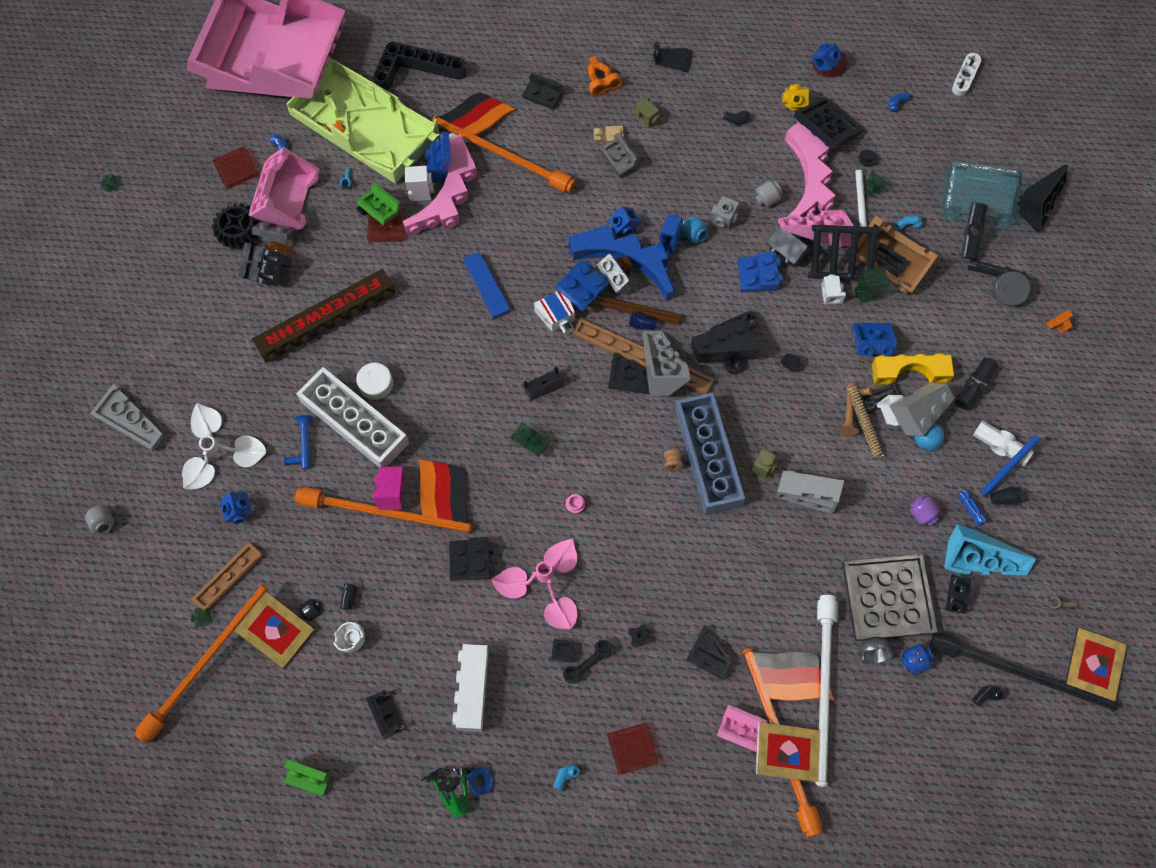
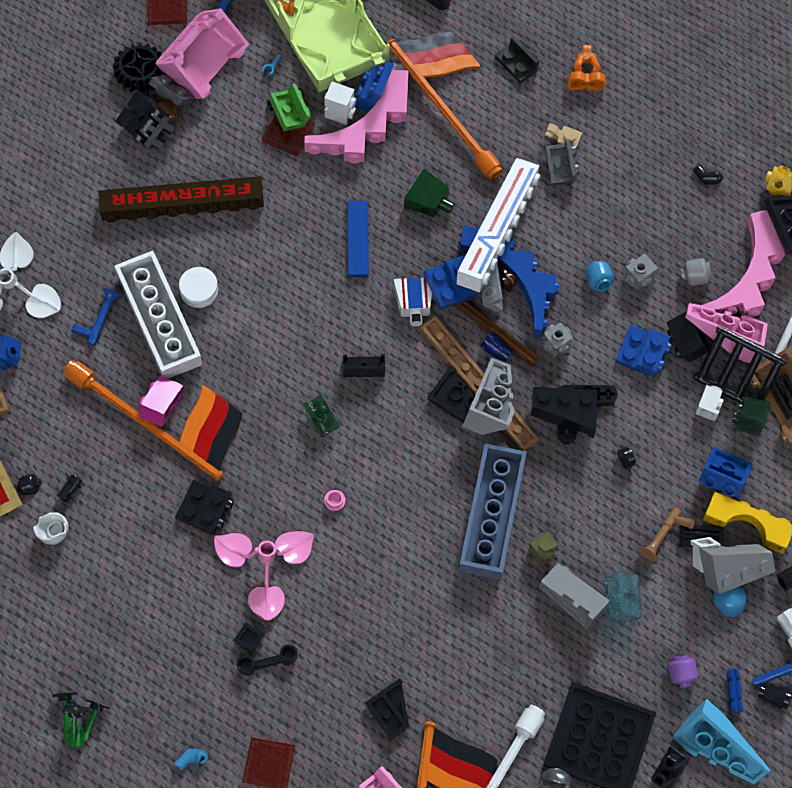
camera: 20 degrees right, 0 degrees up
(385, 713) = (50, 617): black hinge -> none
(472, 688) = (143, 632): white brick -> none
(487, 780) = (116, 723): blue piece -> none
(526, 226) = (428, 195): none -> dark green torso
(597, 225) = (498, 225): none -> white brick
(624, 221) = (530, 235): blue brick -> none
(636, 641) = (335, 663): black plate -> none
(647, 112) = (615, 129): olive brick -> none
(671, 232) = (571, 268): blue brick -> none
(673, 58) = (673, 82): black piece -> none
(673, 460) = (454, 501): medium nougat wheel -> none
(688, 294) = (557, 345): none -> light grey brick
(846, 468) = (624, 597): none -> clear light blue brick
(875, 455) = (666, 561): tan piece -> none

